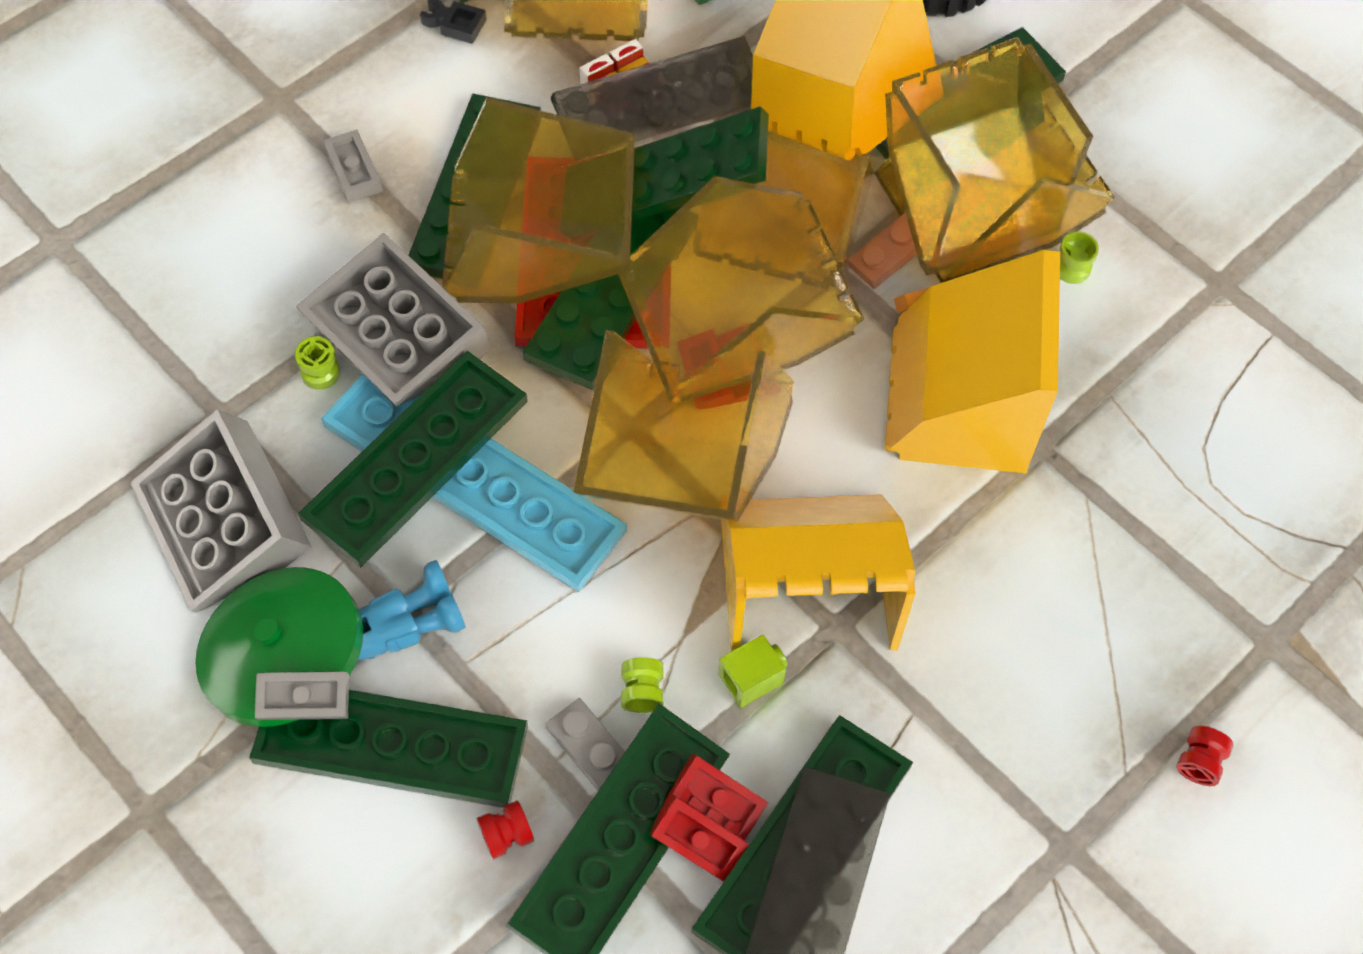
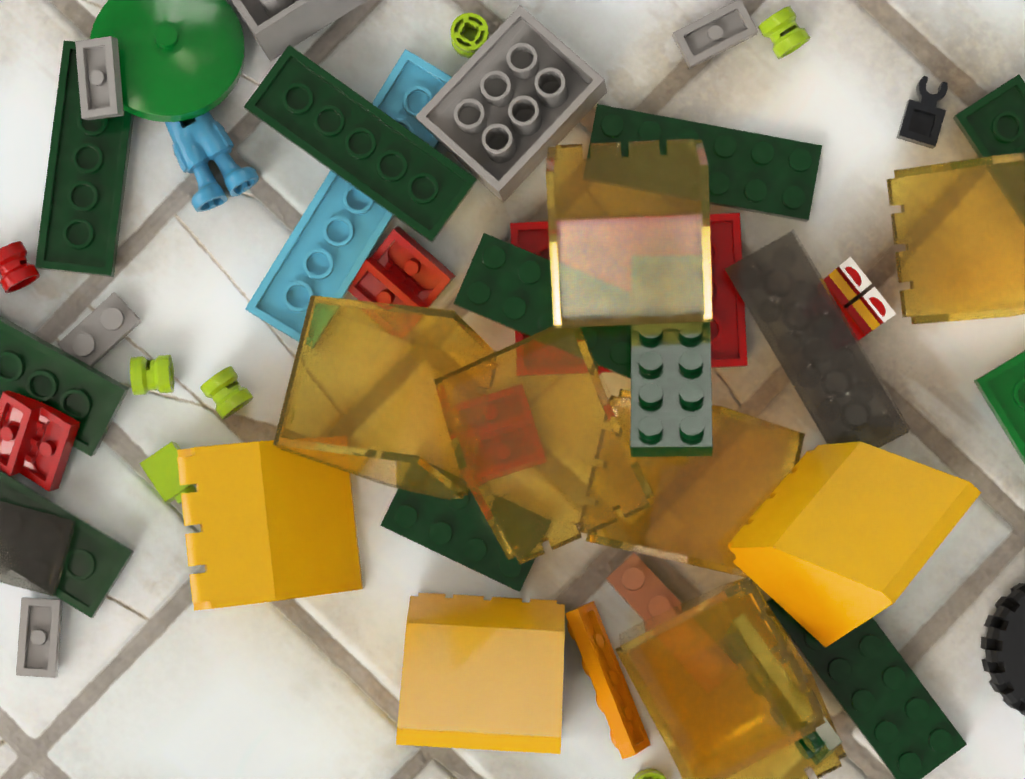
camera: 85 degrees right, 25 degrees up
(362, 111) = (779, 25): none -> lime wheel
(553, 439) = (401, 273): none -> red slope
(671, 608) = (226, 392): none -> lime wheel
(824, 401) = (455, 531): none -> dark green plate
(934, 824) = (39, 637): none -> light grey plate

